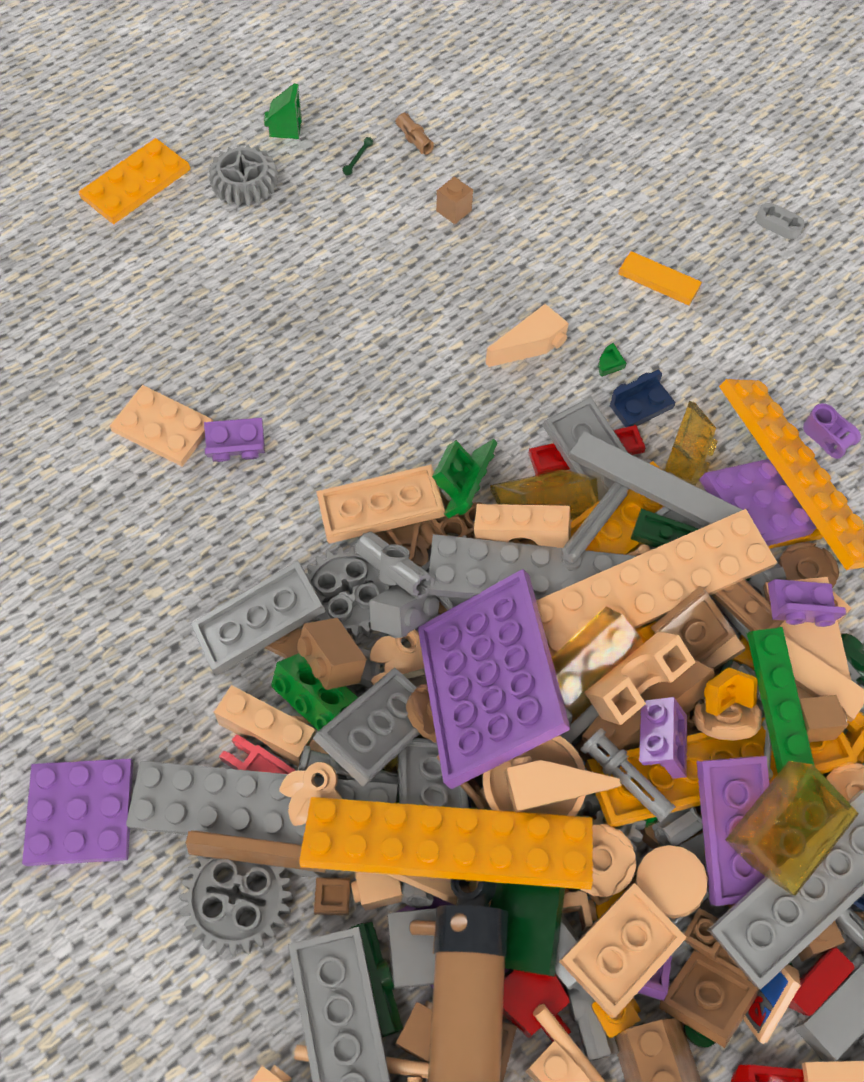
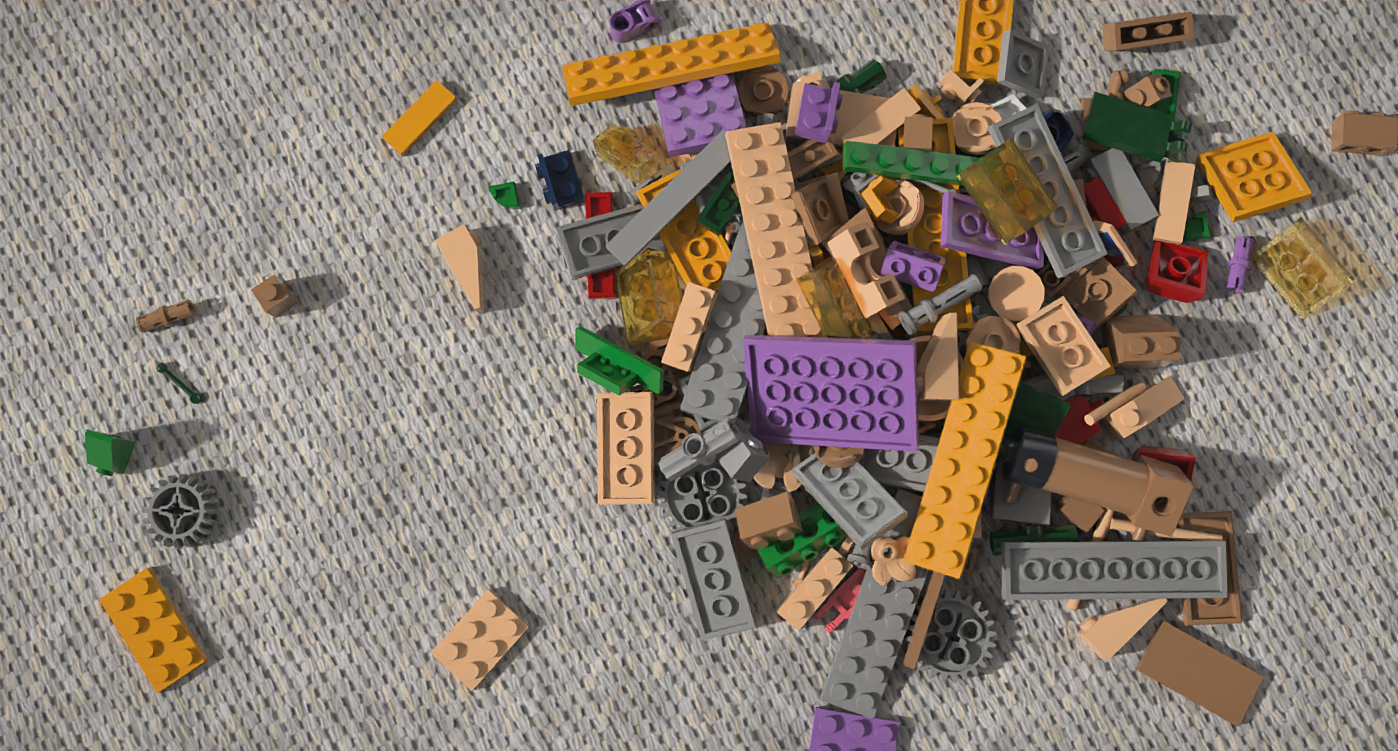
camera: 75 degrees left, 20 degrees up
(234, 438) = (517, 572): medium lavender bracket -> none
(594, 523) = (699, 263): light grey axle -> none

